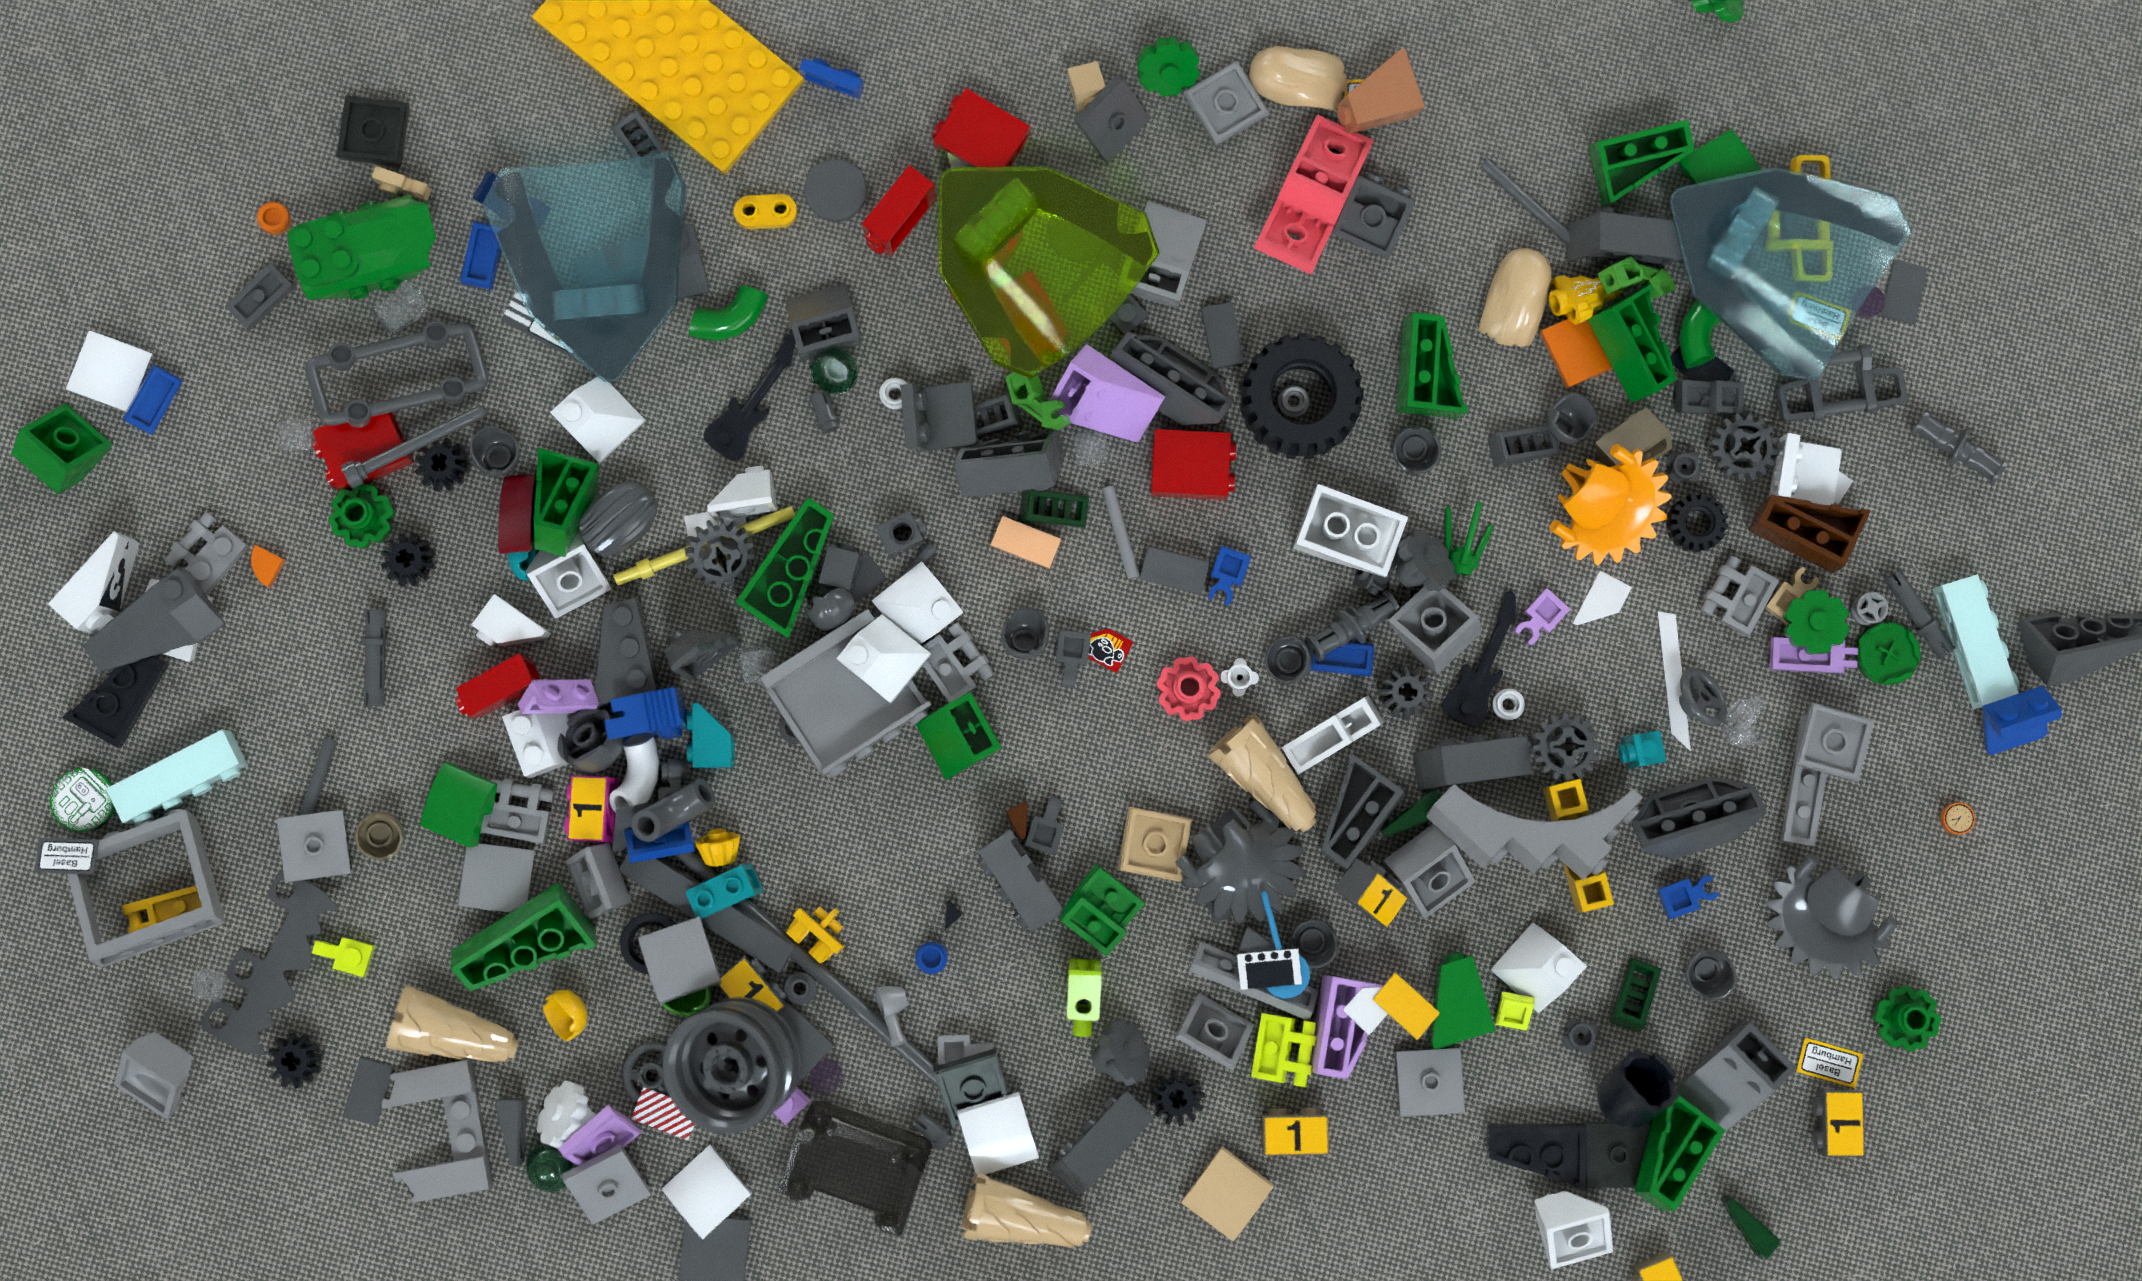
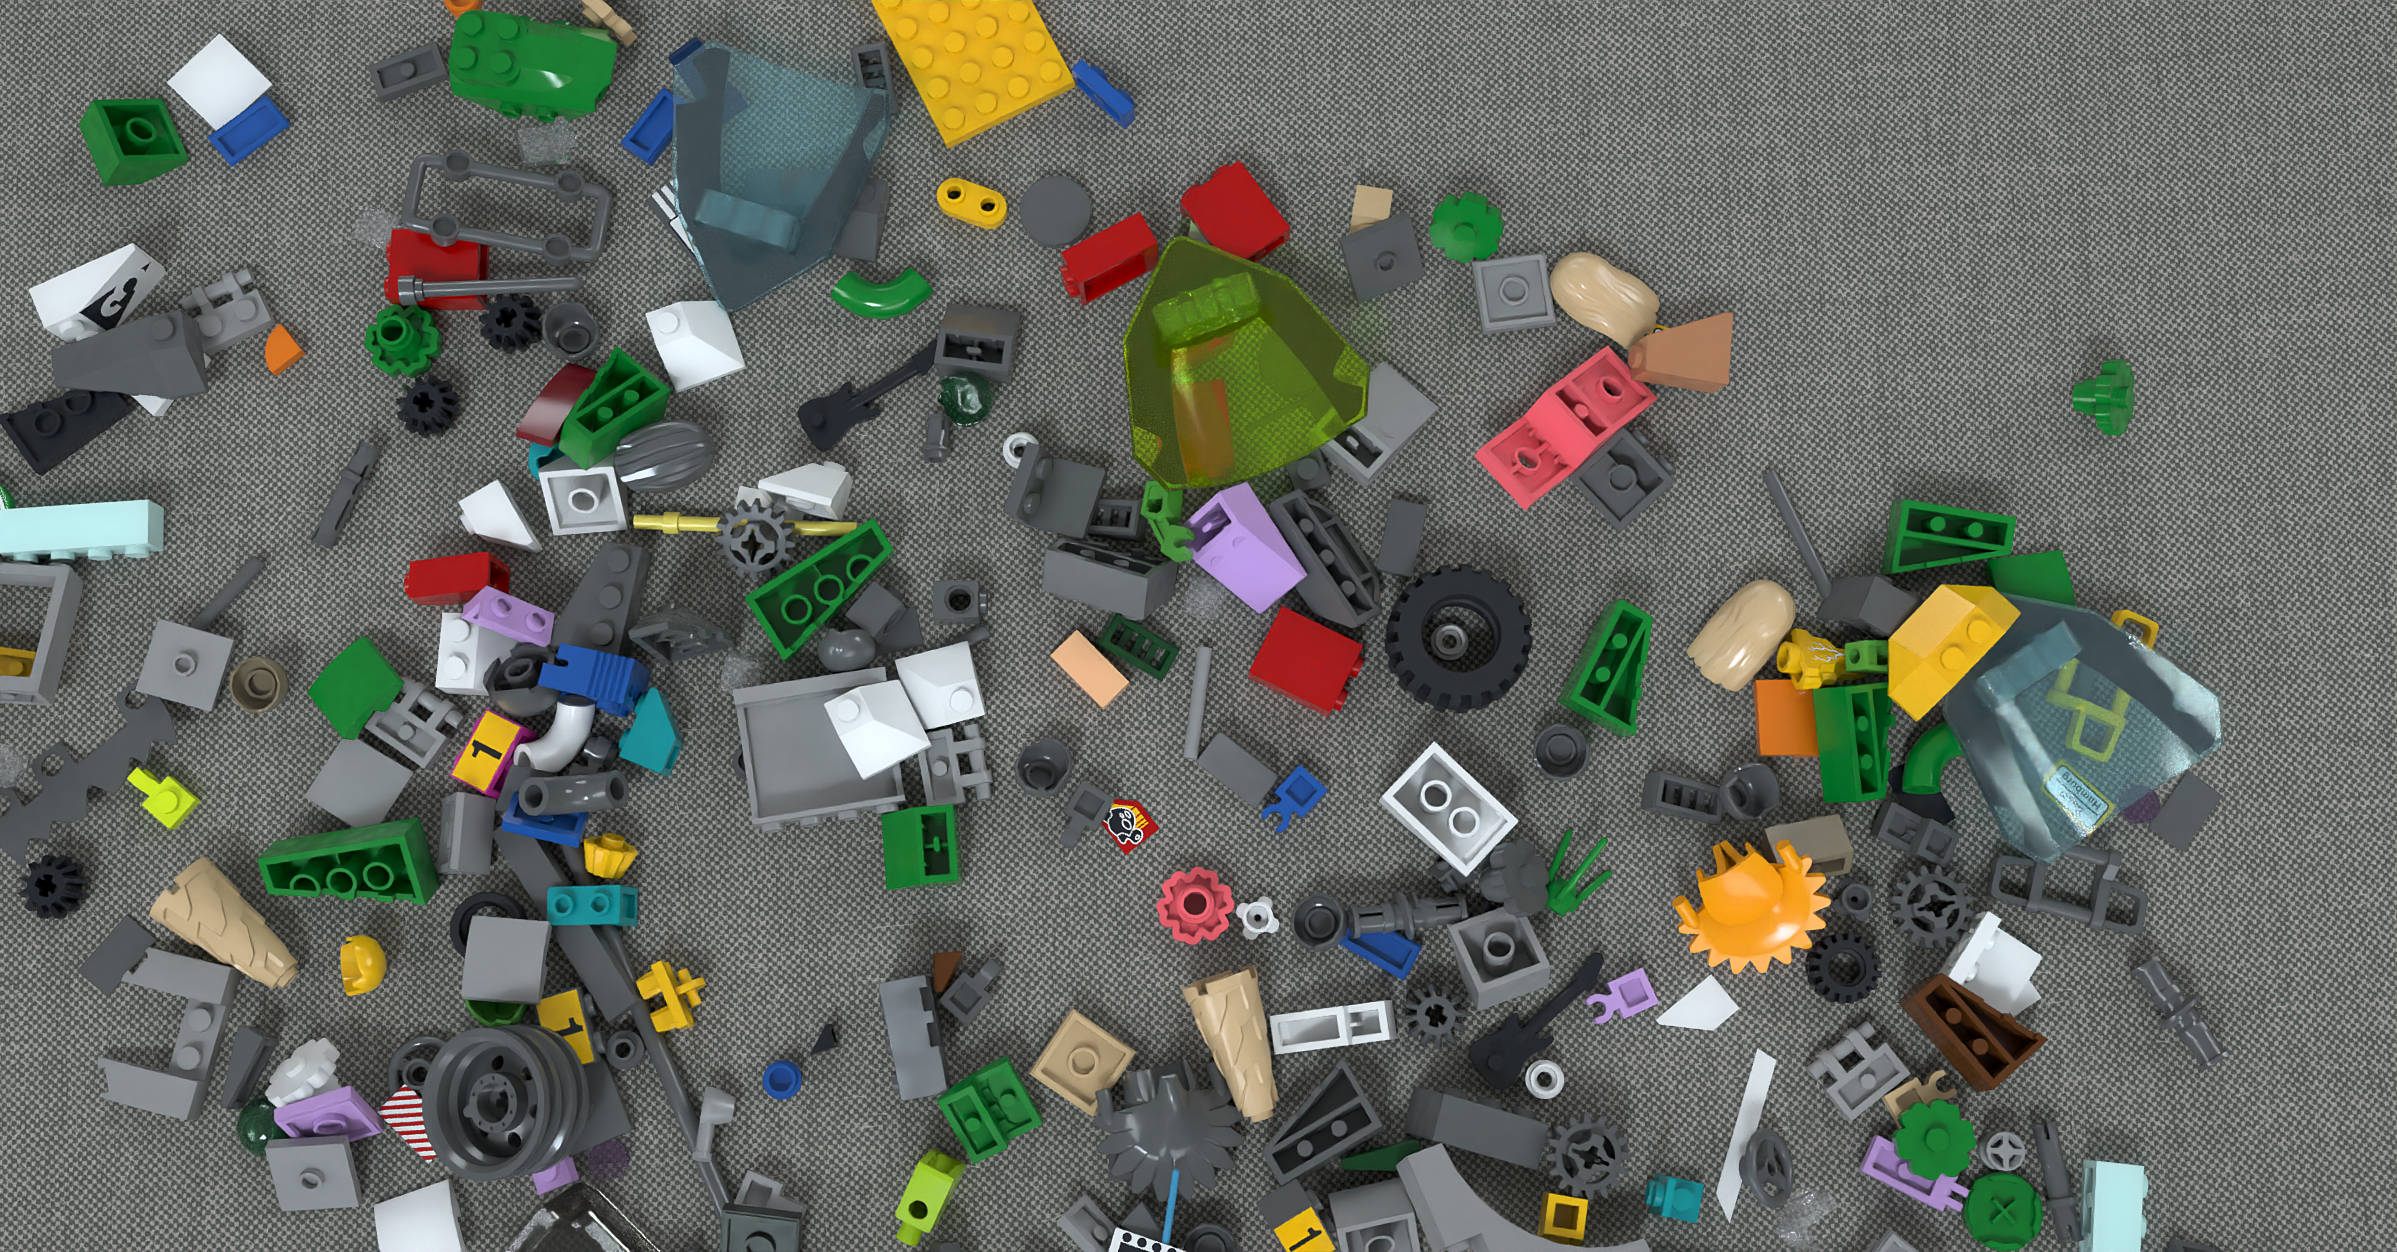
camera: 30 degrees right, 5 degrees down
(1673, 241) = (1944, 643): none -> yellow wedge

